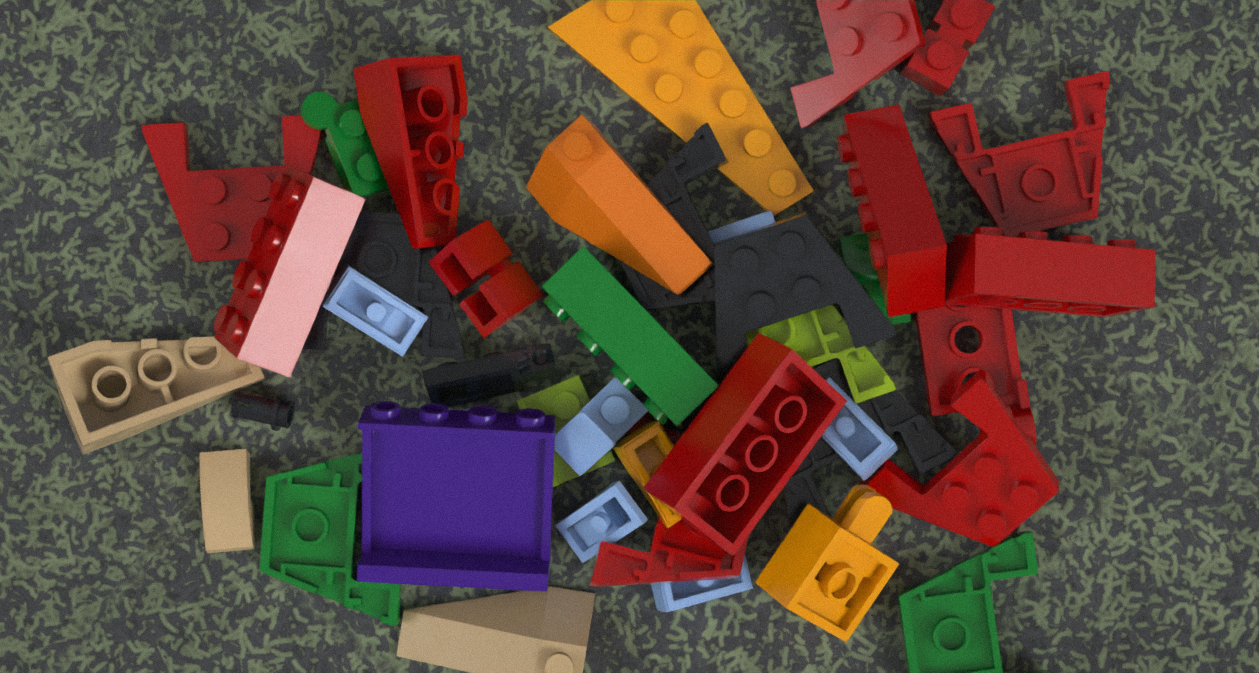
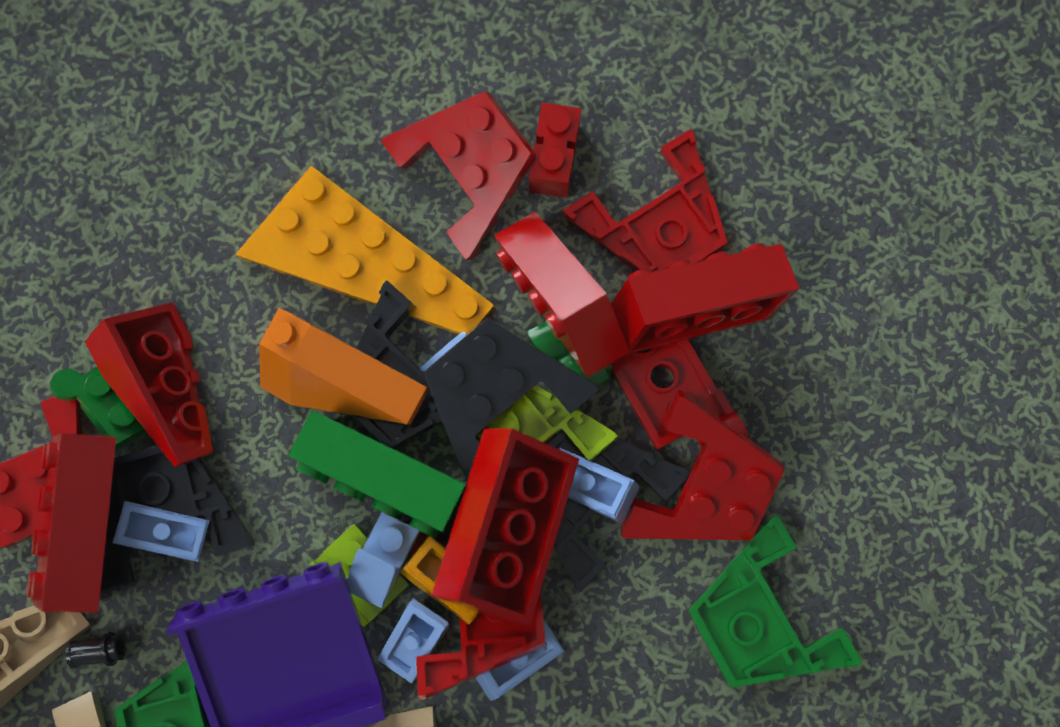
camera: 15 degrees left, 10 degrees down
(481, 254) = (239, 457): red piece -> none
(489, 376) = (277, 551): black hinge -> none
(830, 566) = (617, 606): light orange brick -> none

